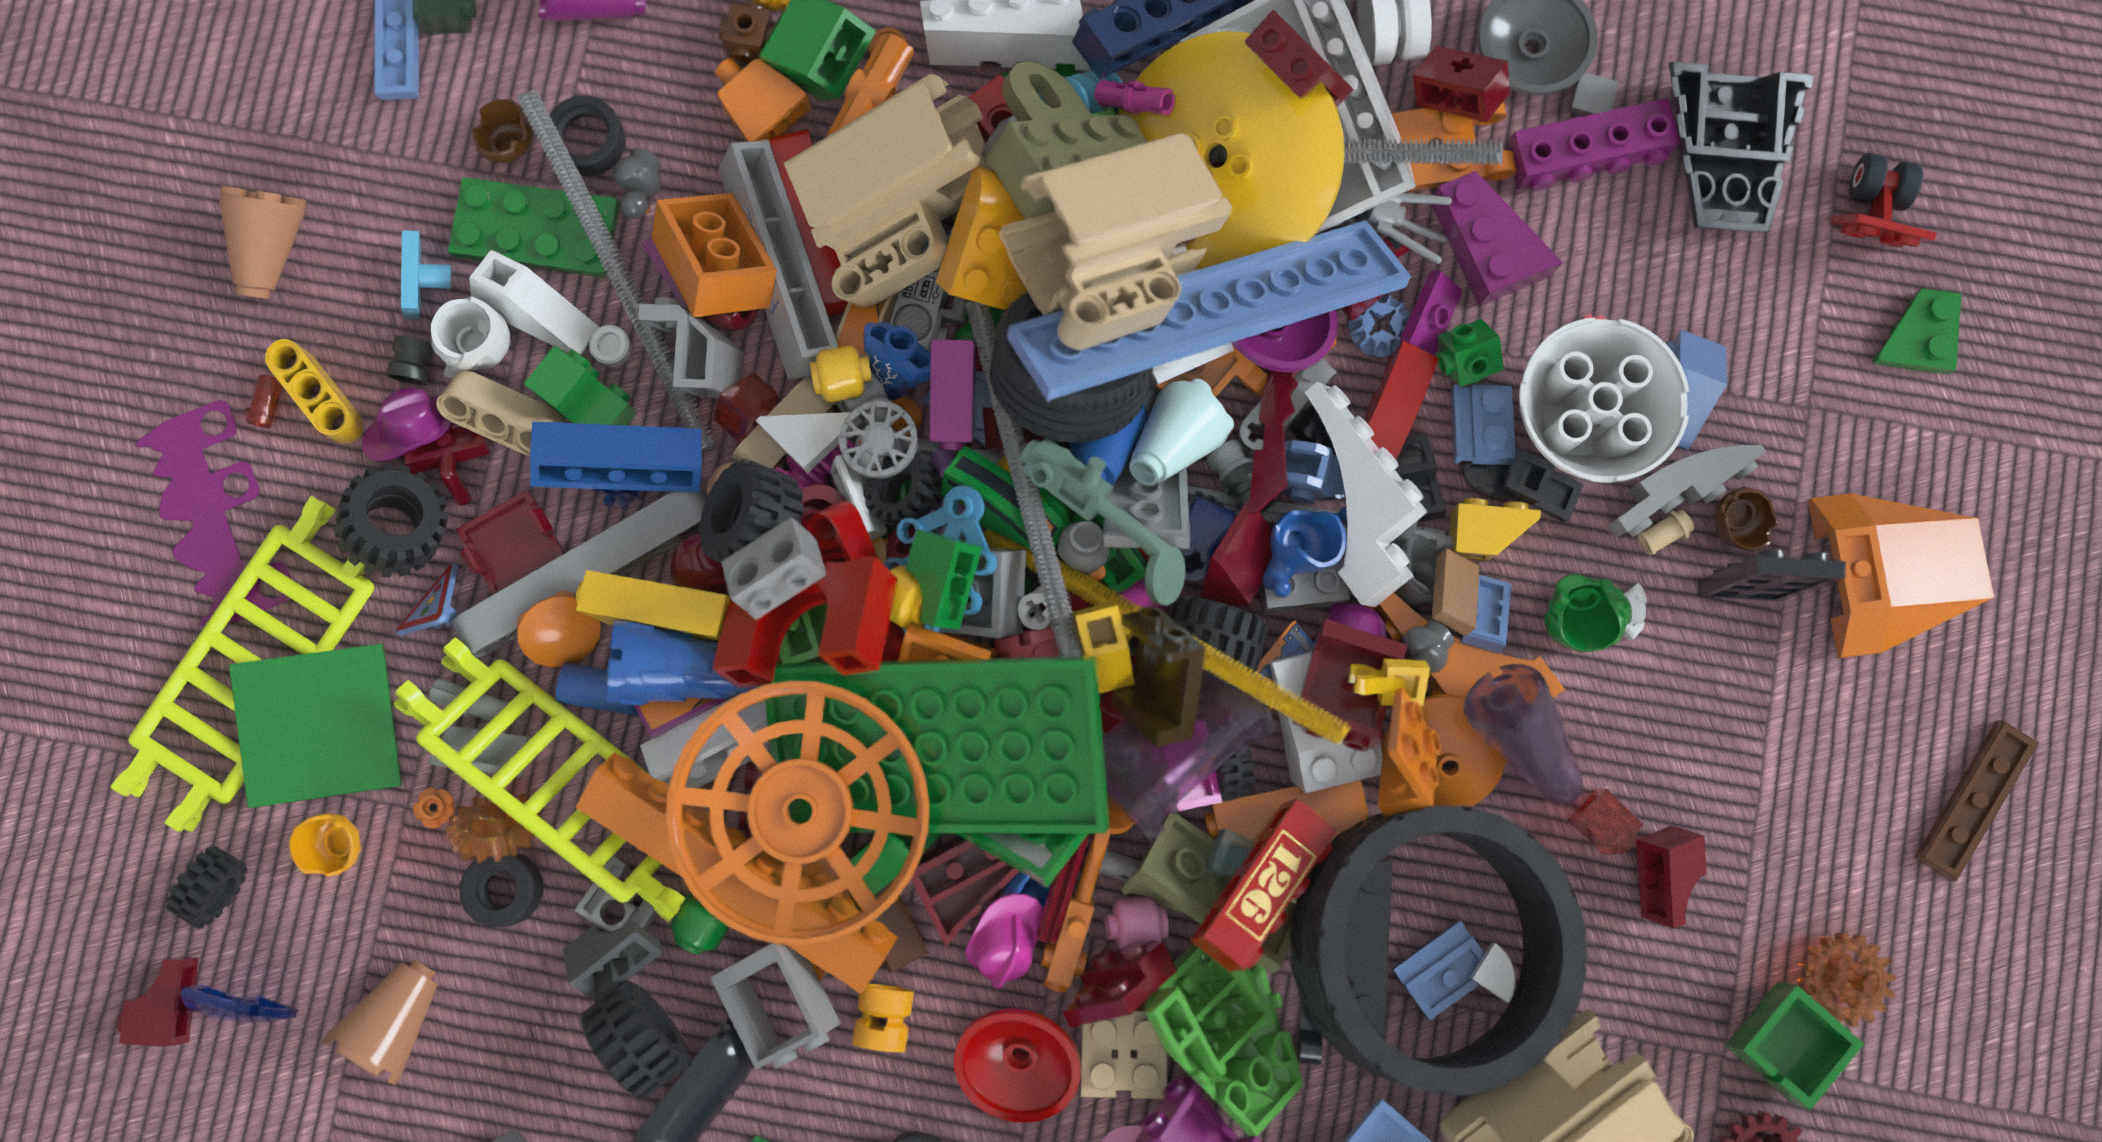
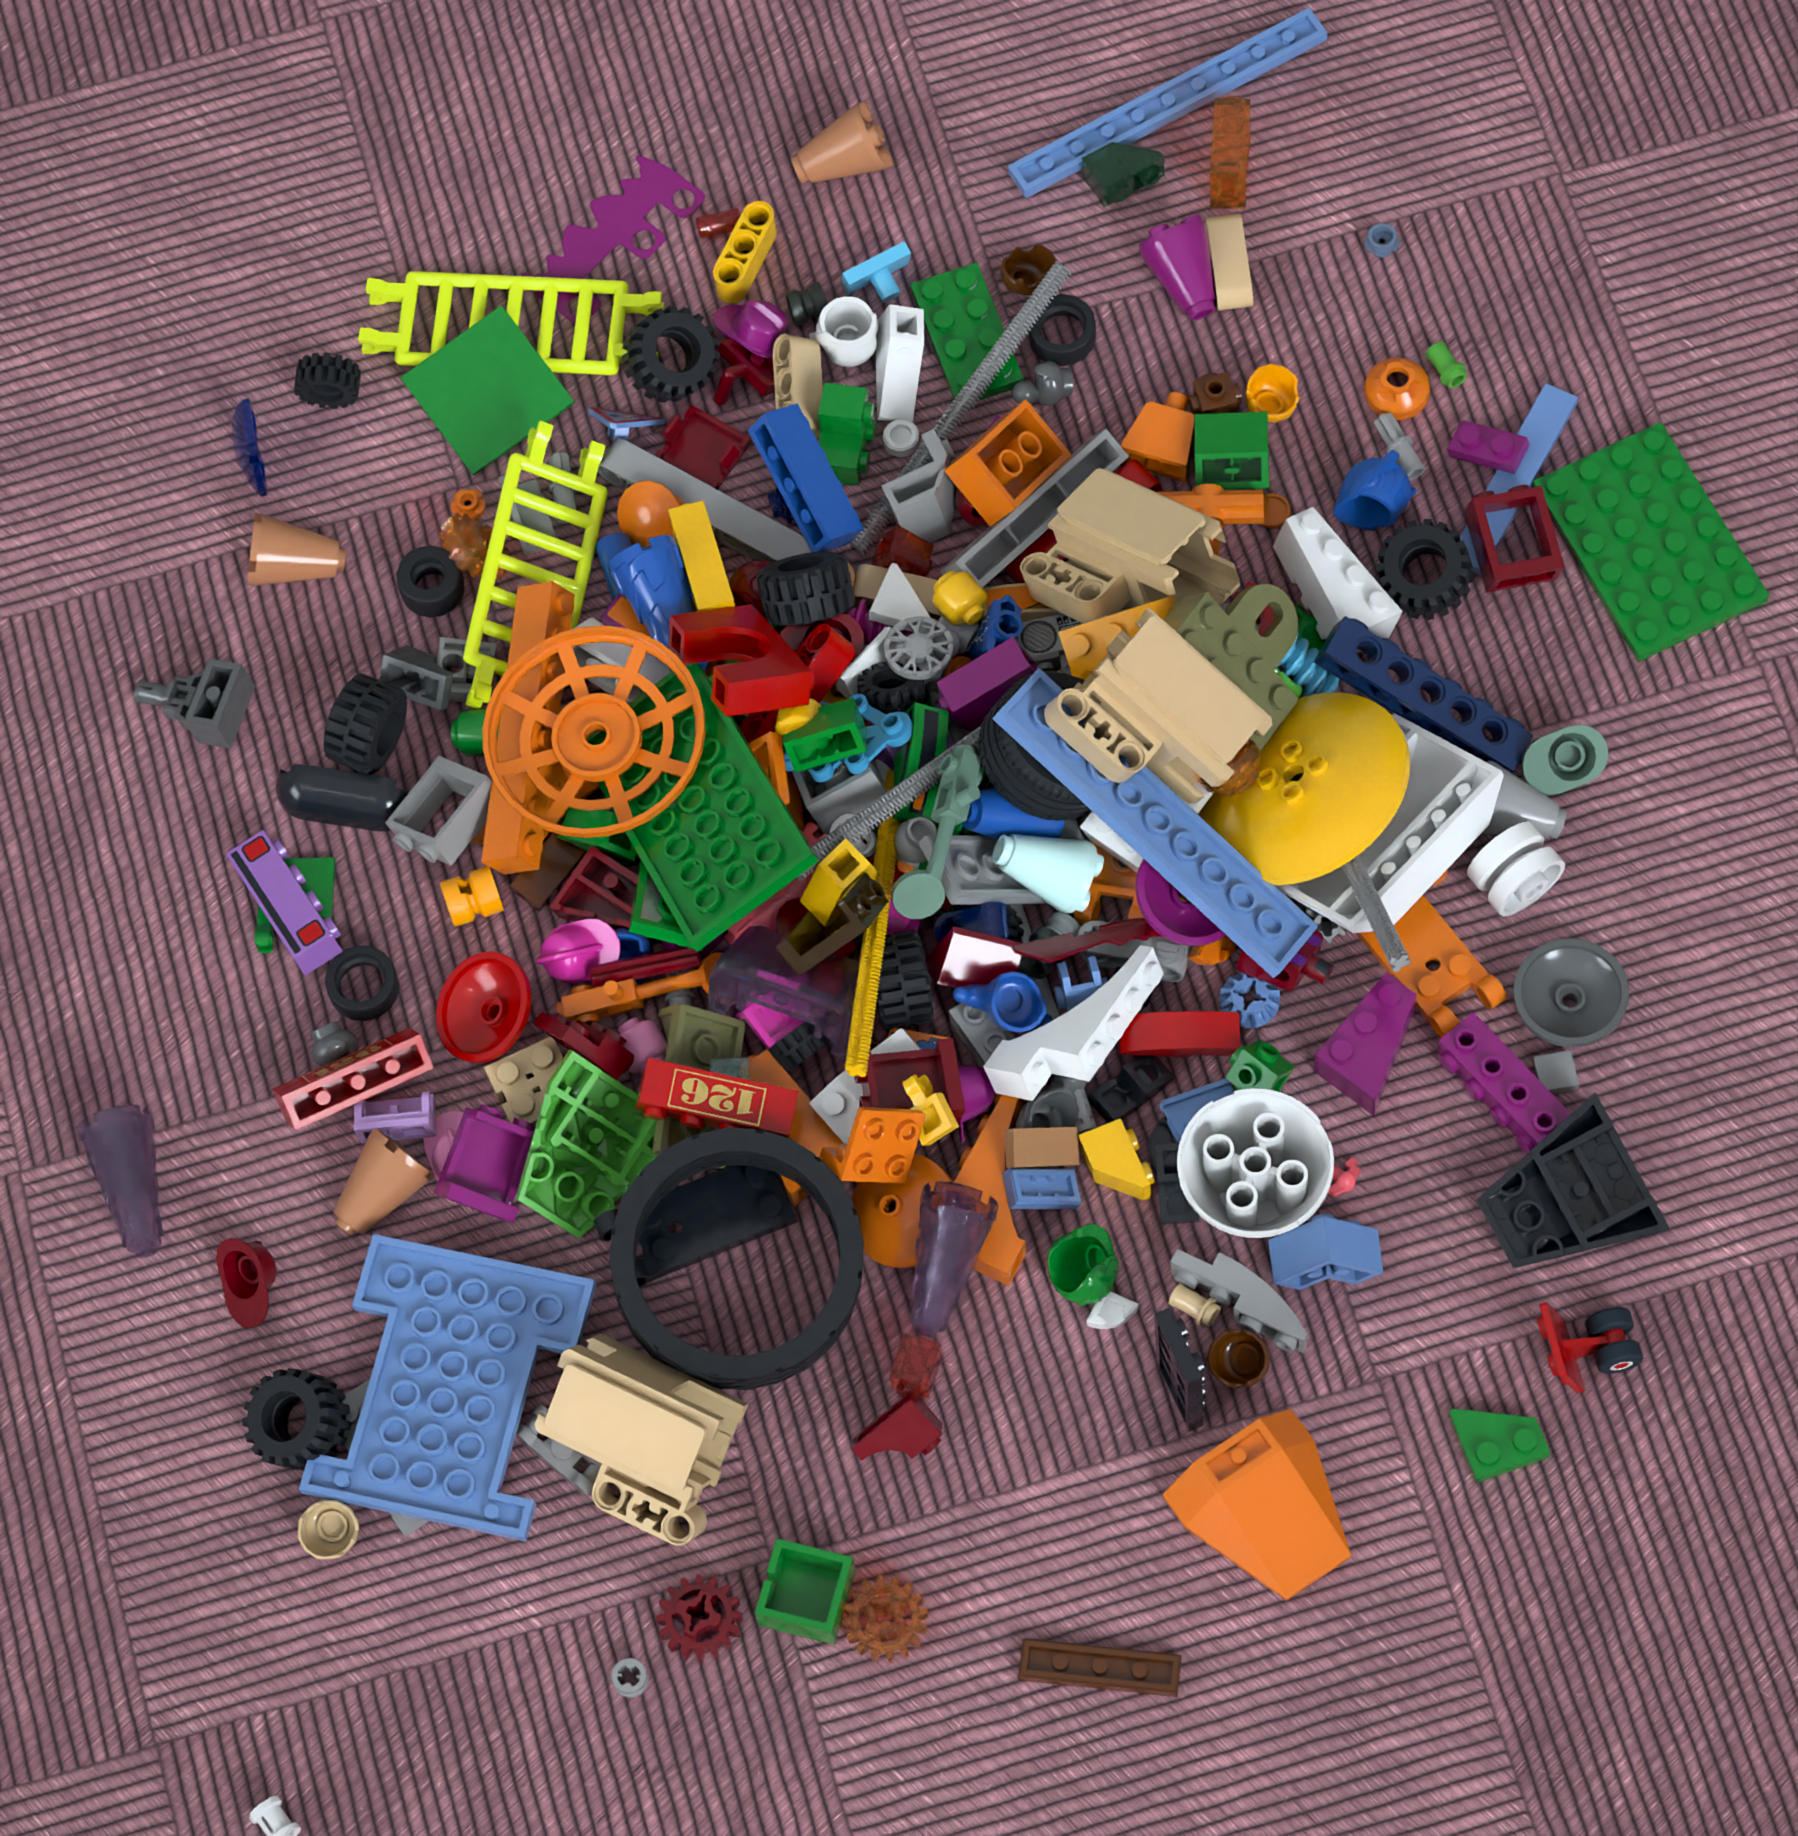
camera: 70 degrees right, 15 degrees down
(160, 1013) = (217, 399): dark red arch -> none
(325, 844) = (400, 443): light orange hair -> none
(773, 568) = (768, 614): light grey brick -> none
(1134, 97) = (1312, 694): dark pink pin -> none
(1294, 59) = (1398, 782): dark red panel -> none
(1390, 217) = (1338, 944): light grey plant -> none
(1429, 644) = (978, 1144): dark grey animal -> none
(1432, 312) = (1281, 1028): magenta plate -> none
(1440, 970) = (726, 1299): medium blue plate -> none
(1461, 83) = (1491, 949): dark red brick -> none
(1495, 973) = (742, 1330): white tile -> none

